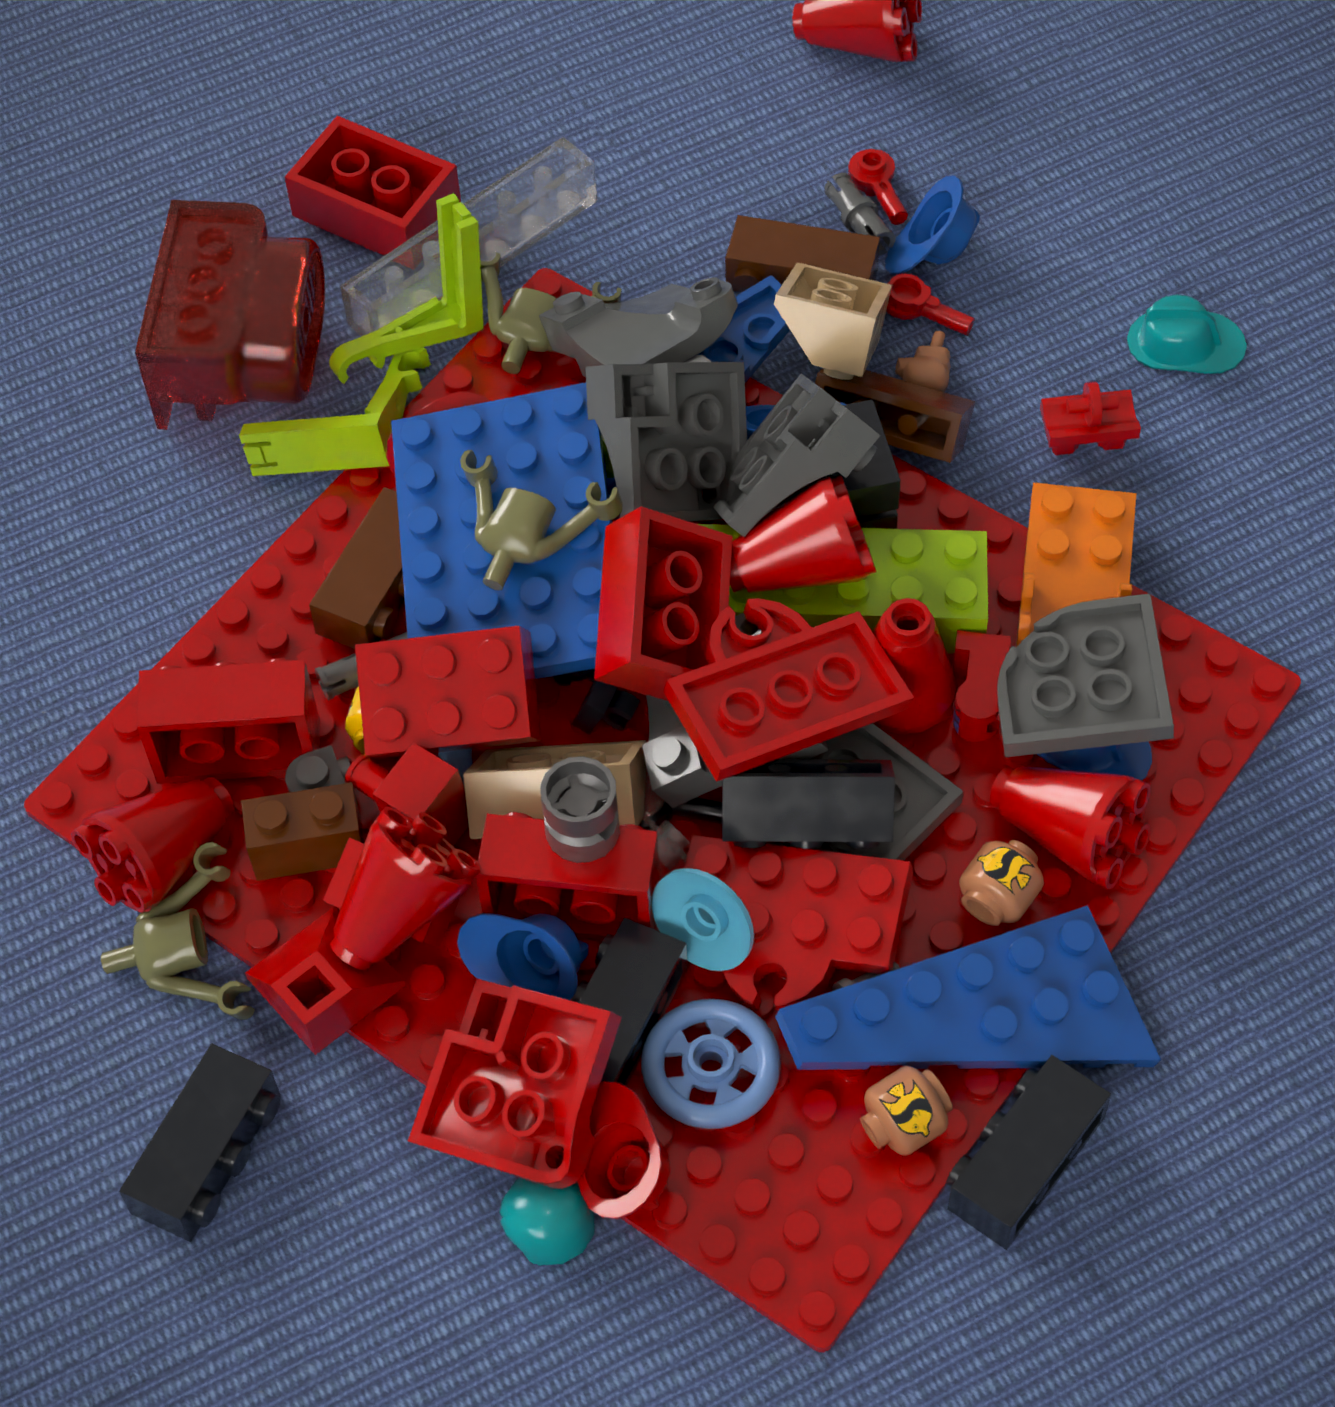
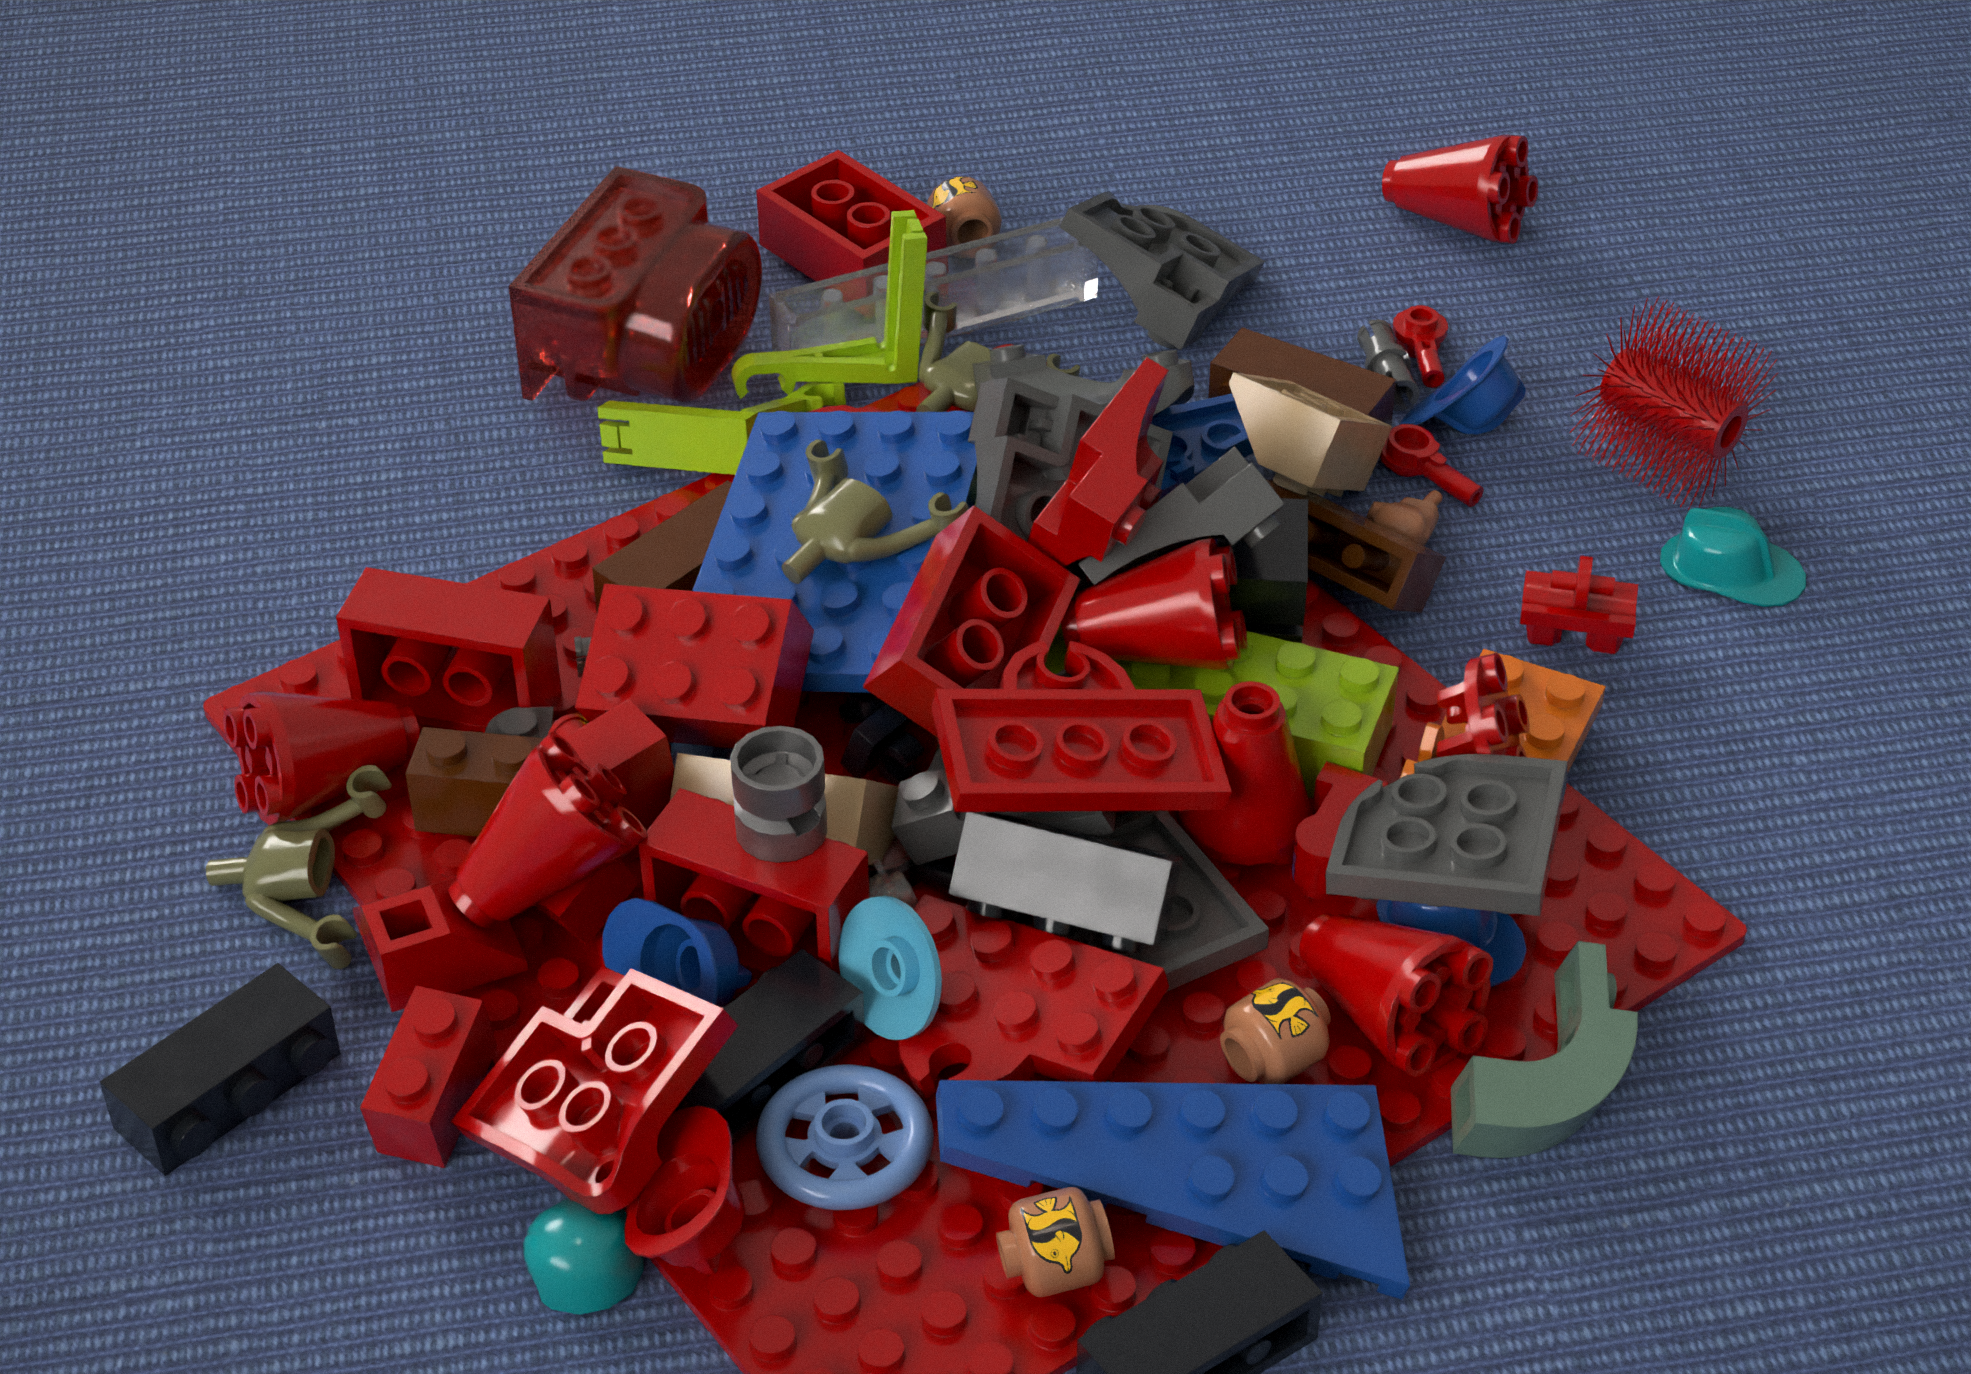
camera: 15 degrees right, 15 degrees down
(372, 1105) = (428, 1076): none -> red brick
(463, 144) = (968, 210): none -> nougat head
(649, 158) = (1166, 262): none -> dark grey slope
(732, 465) = (1109, 478): none -> red slope
(1076, 555) = (1486, 705): none -> red plate
(1109, 211) = (1673, 402): none -> red piece
(1227, 849) = (1533, 1105): none -> sand green arch

